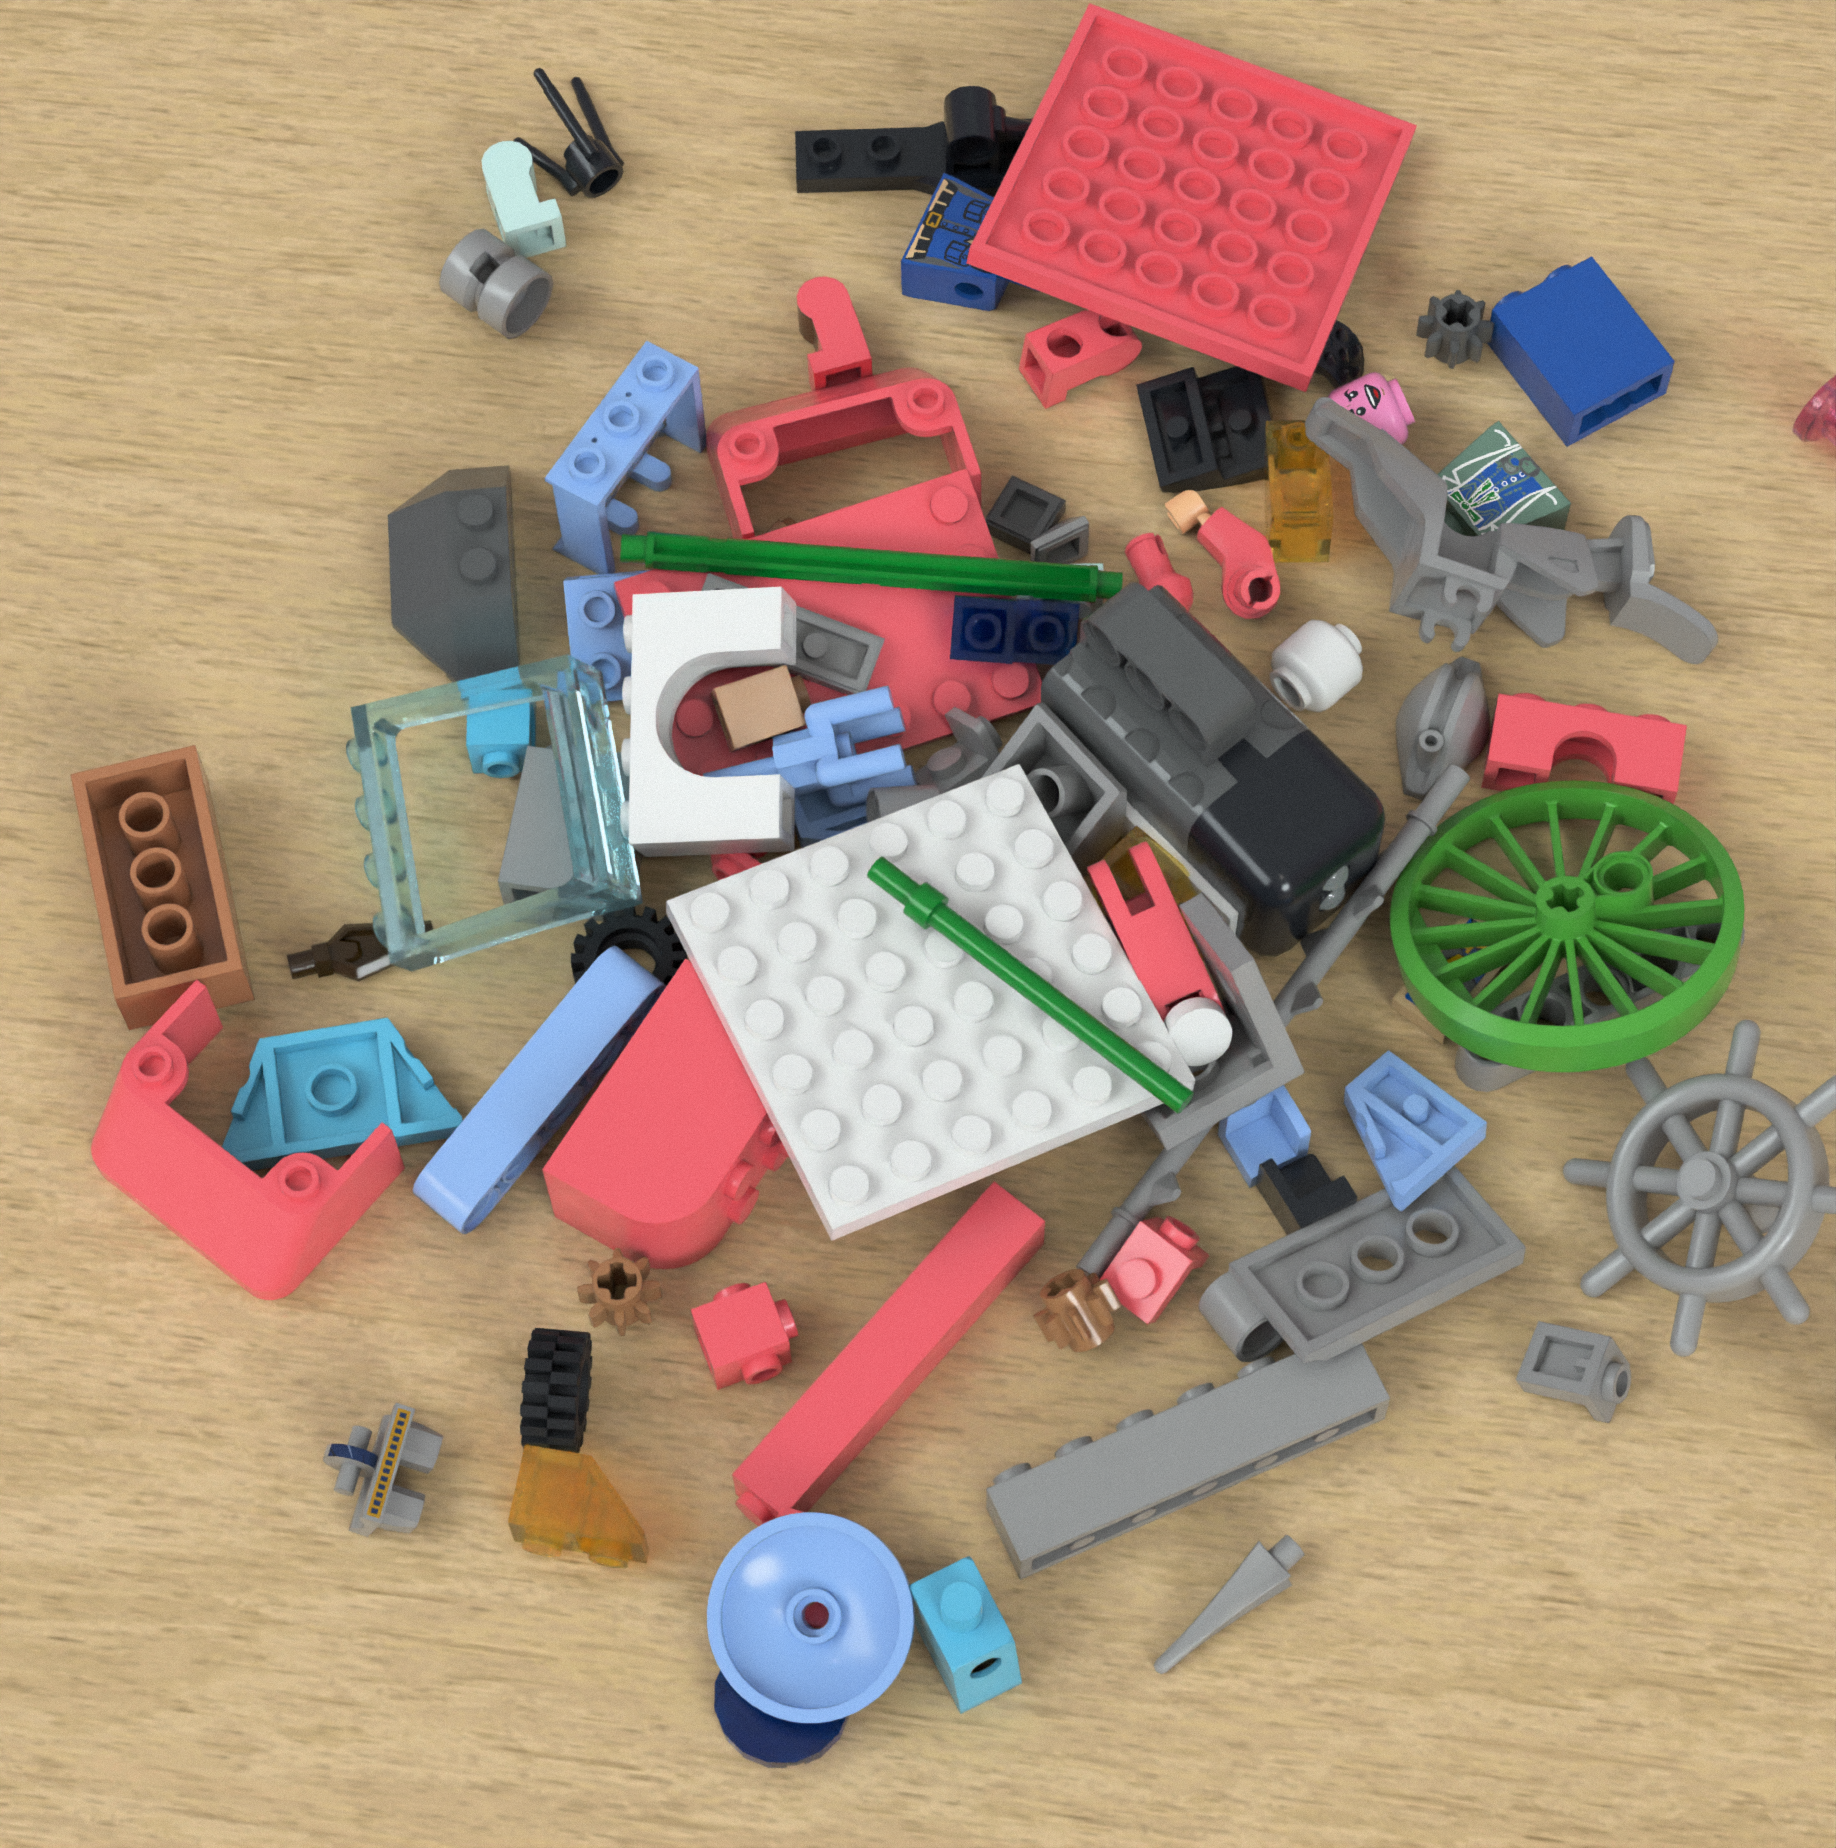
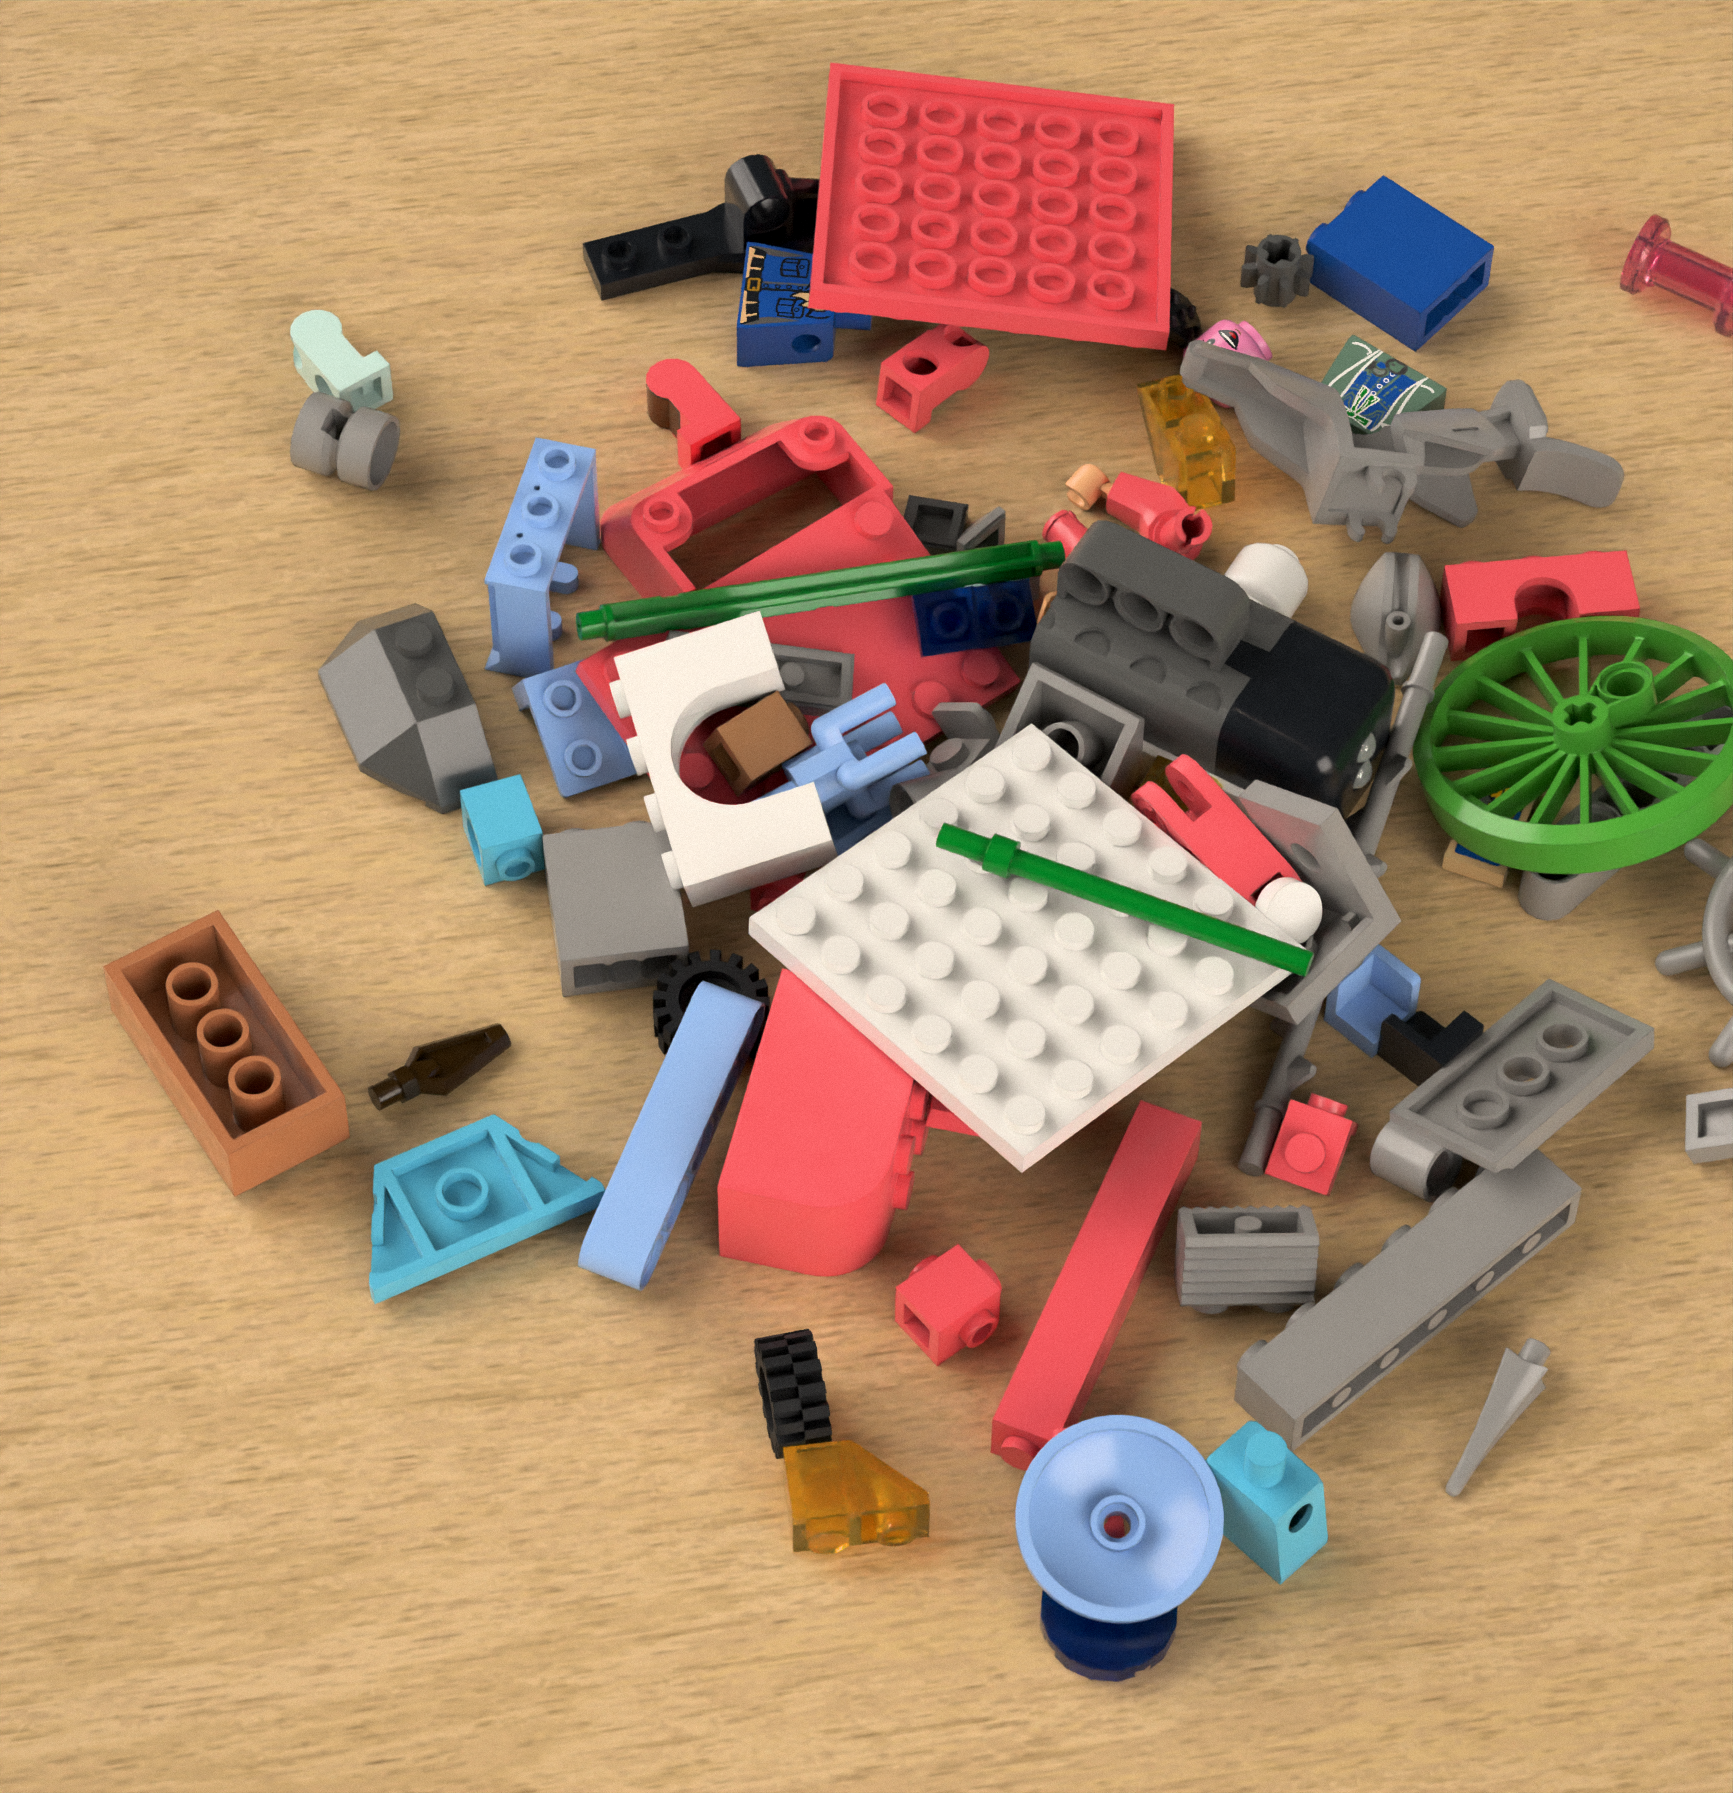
camera: 20 degrees left, 10 degrees down
(249, 1227) = (377, 1311): coral windscreen -> none
(396, 1444) = (636, 1516): light grey hips -> none
(590, 163) = (390, 313): black plant -> none
(590, 795) = (667, 922): clear light blue windscreen -> none
(634, 1304) = (815, 1296): medium nougat gear -> none
(1038, 1372) = (1245, 1257): none -> light grey brick
(1077, 1310) = (1258, 1184): medium nougat gear -> none
(1206, 428) = (1077, 411): black slope -> none
(1409, 1127) = (1504, 958): light blue wing -> none

